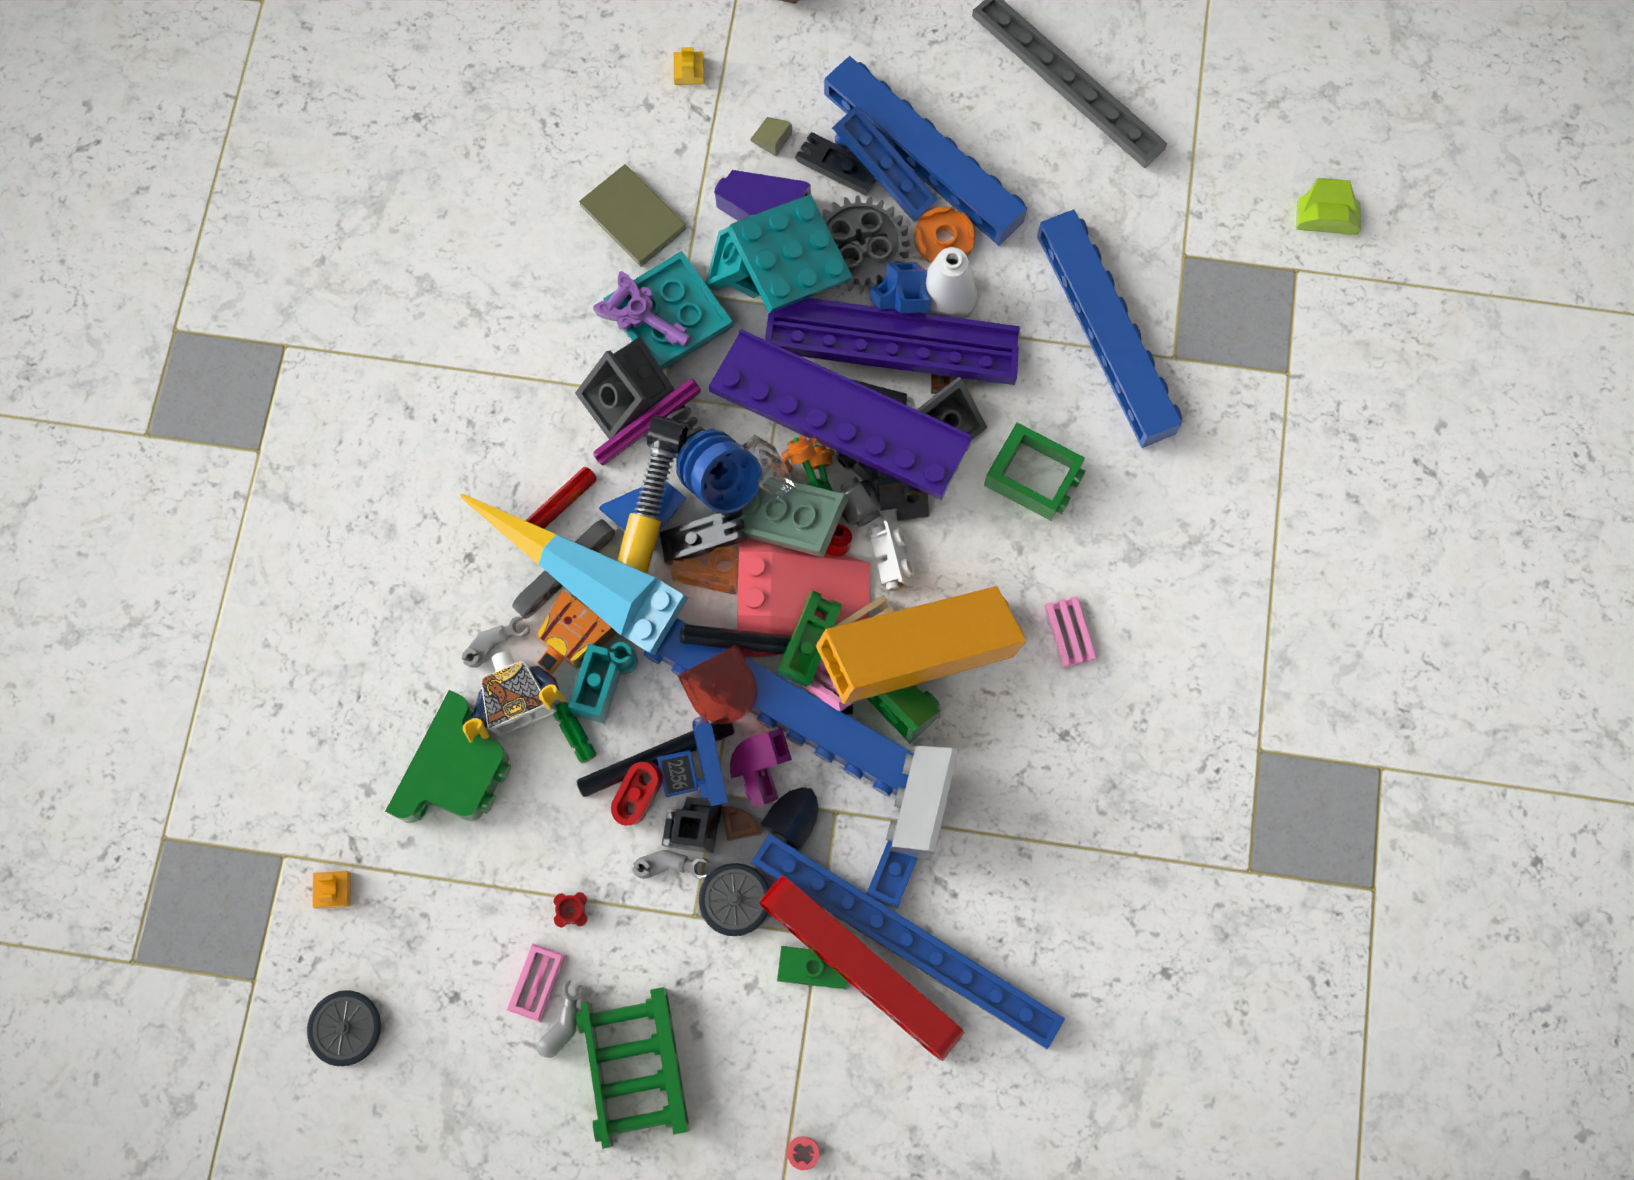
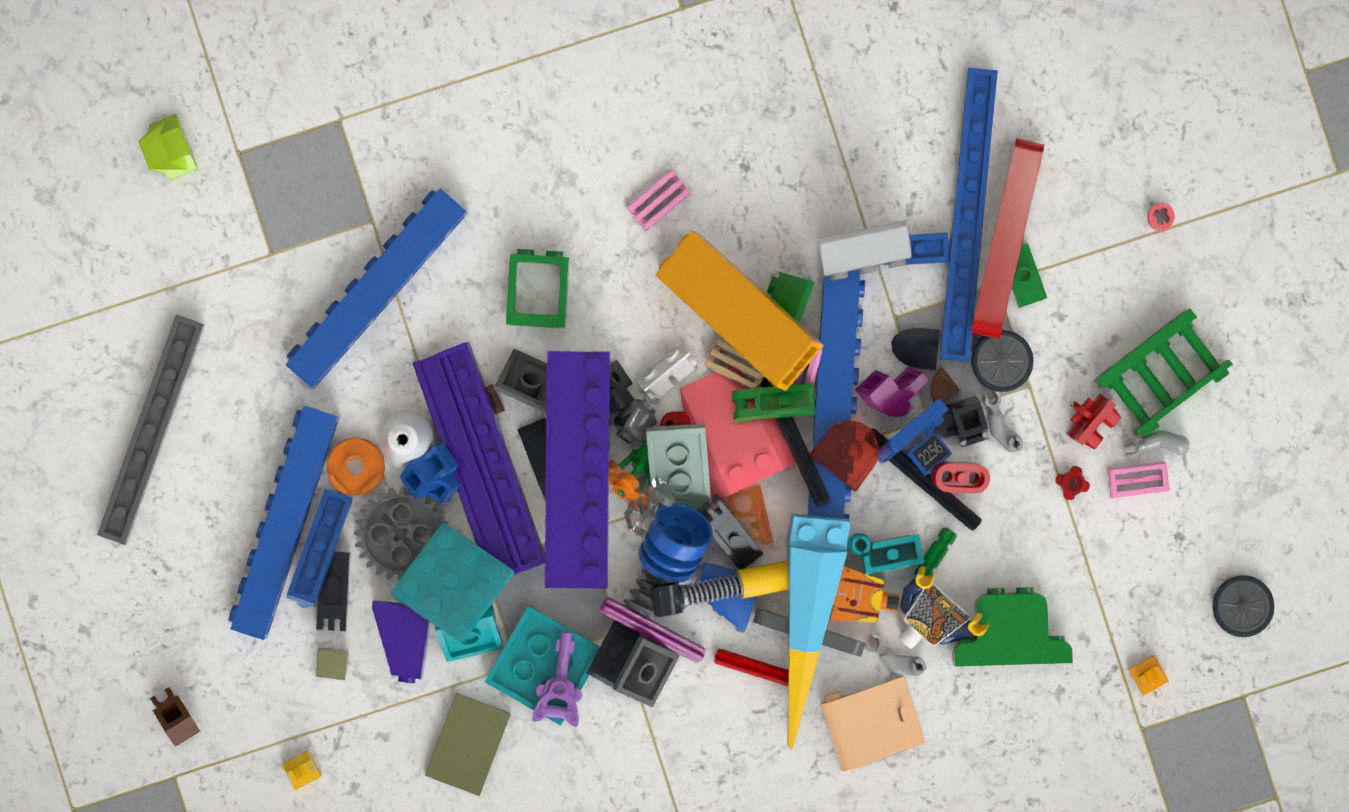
camera: 115 degrees left, 15 degrees up
(441, 581) = (868, 723): none -> light nougat door
(627, 960) = (1089, 417): none -> red hips

